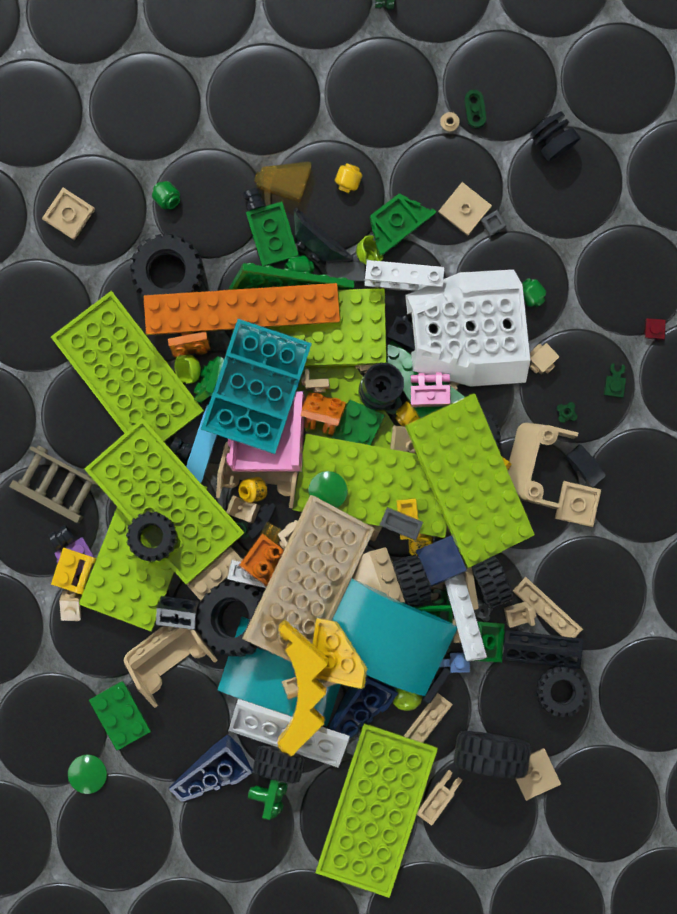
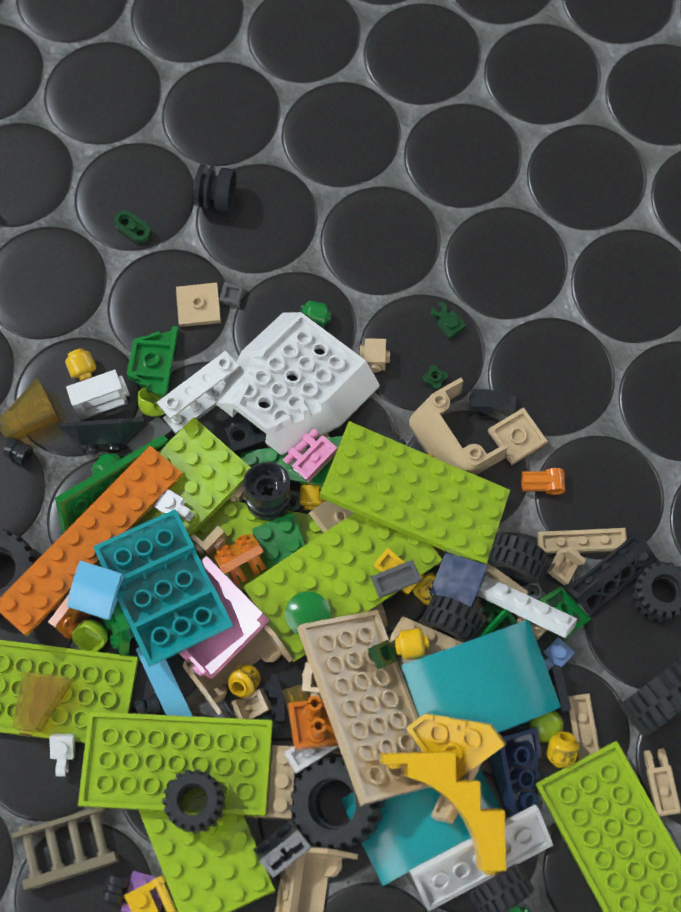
camera: 45 degrees left, 15 degrees down
(106, 423) = (62, 748): none -> white plate
(118, 380) = (38, 700): none -> clear yellow slope
(213, 348) = (94, 590): none -> medium azure slope
(272, 234) = (57, 462): green plate -> none
(314, 334) = (171, 501): none -> white plate
(338, 212) = (98, 394): none -> white window
(349, 561) = (384, 653): none -> dark green plate
(371, 572) = (412, 643): none -> yellow head
(400, 721) = (562, 749): none -> yellow head
(449, 127) = (124, 258): tan plate -> none
(566, 552) = (550, 480): none -> orange piece
(654, 329) = (436, 256): dark red plate -> none

